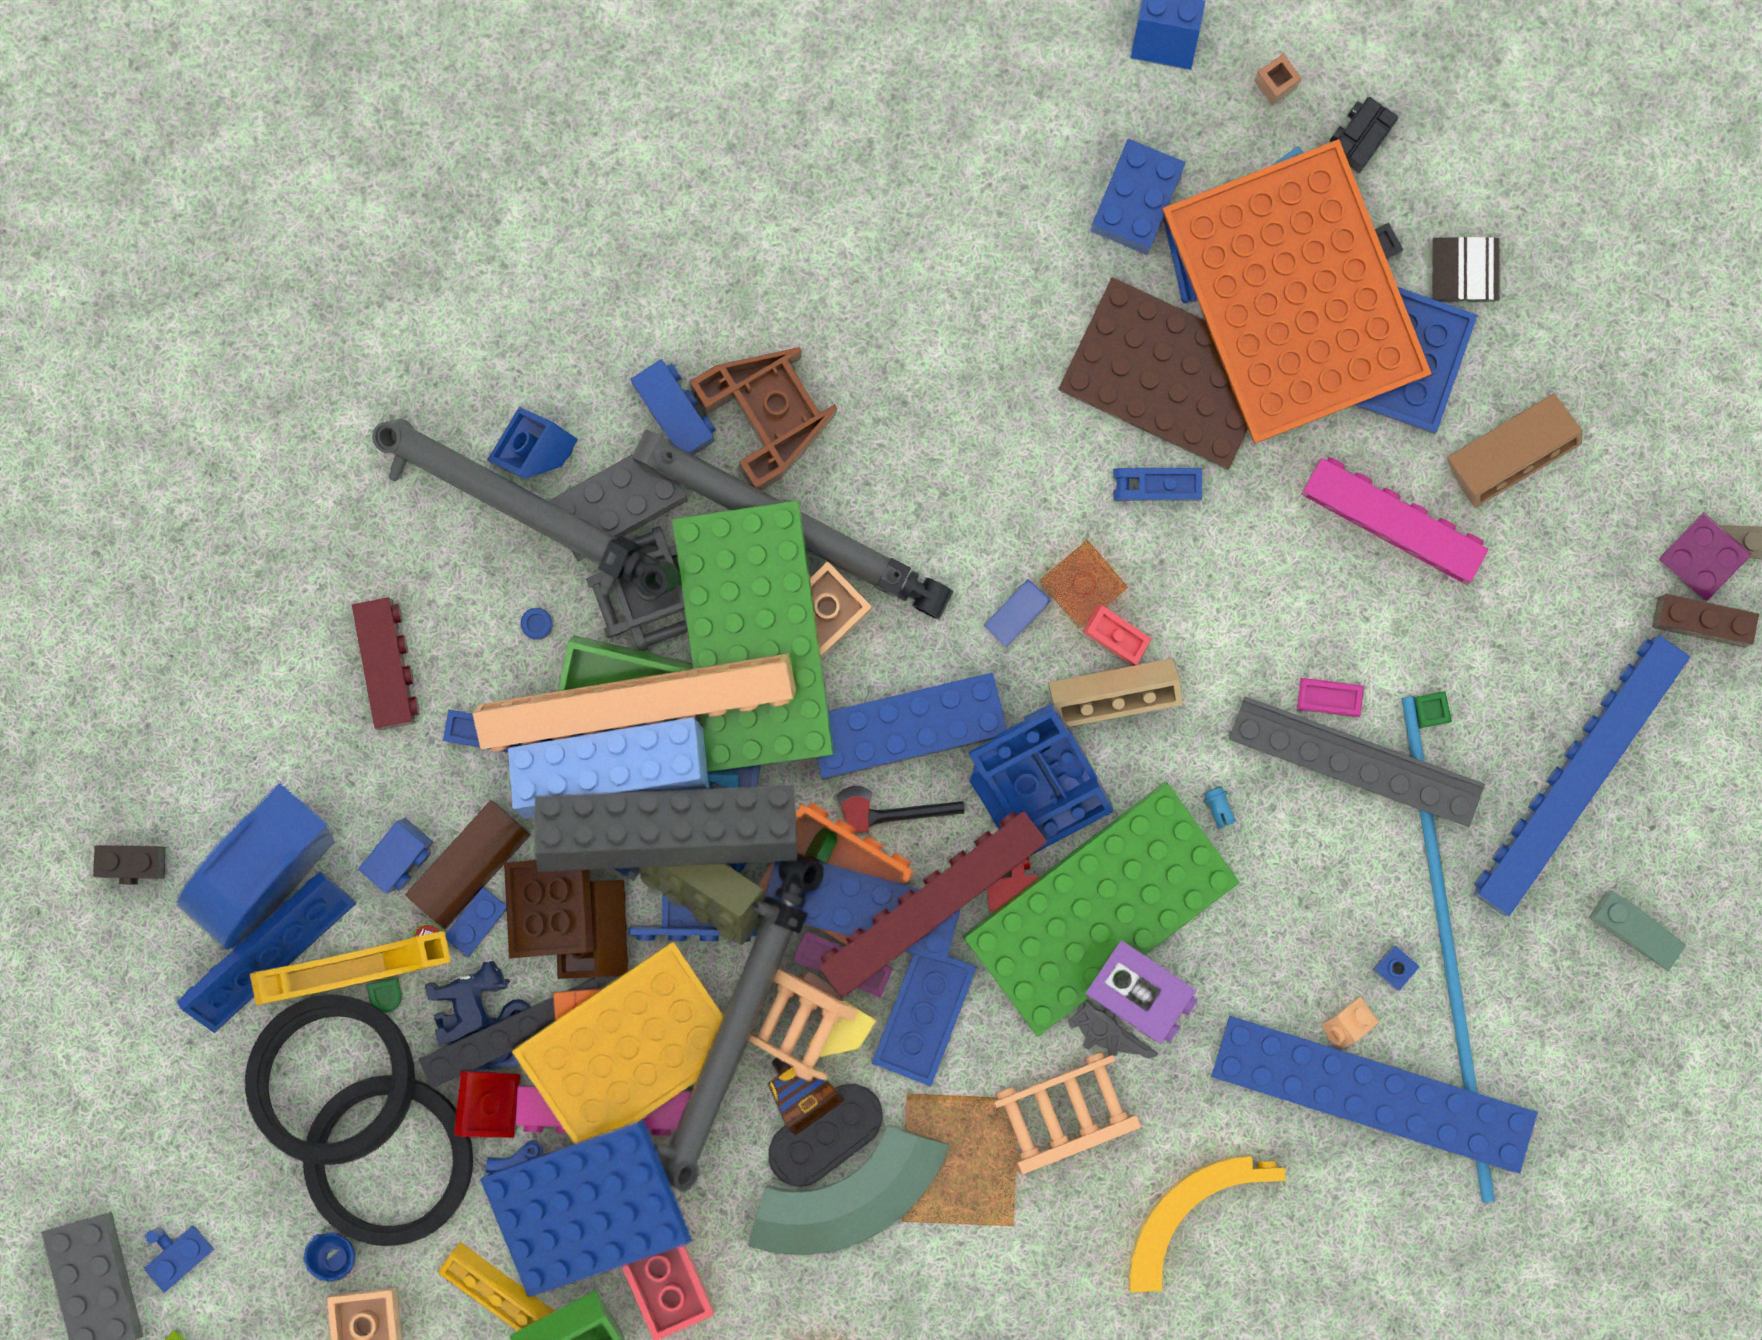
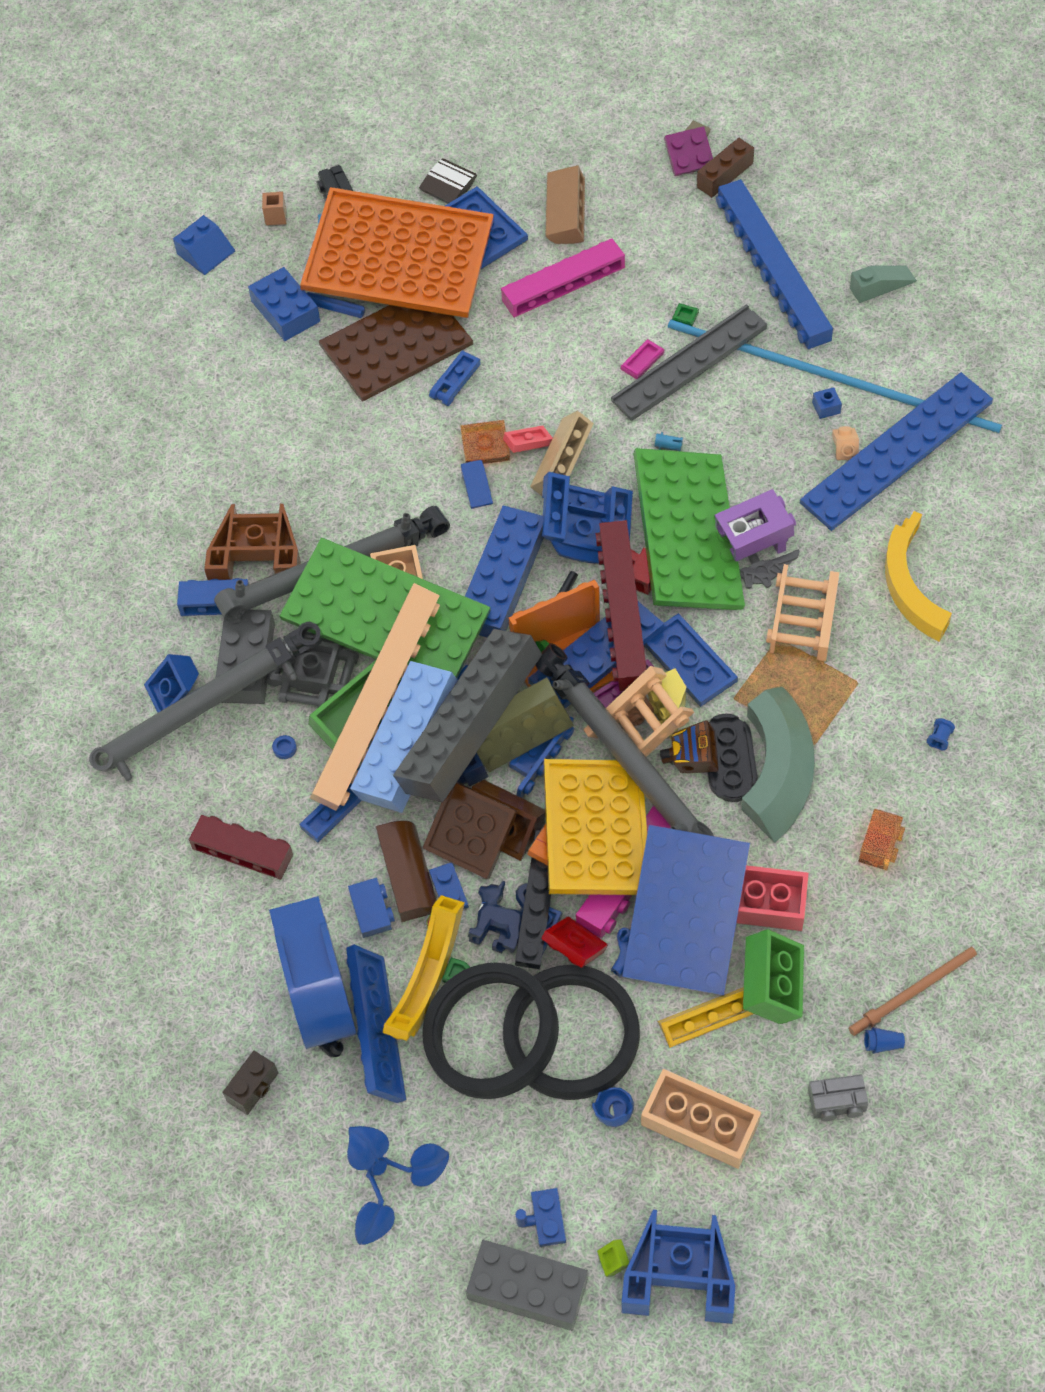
camera: 55 degrees left, 25 degrees down
(120, 1048) = (366, 1153): none -> blue plant

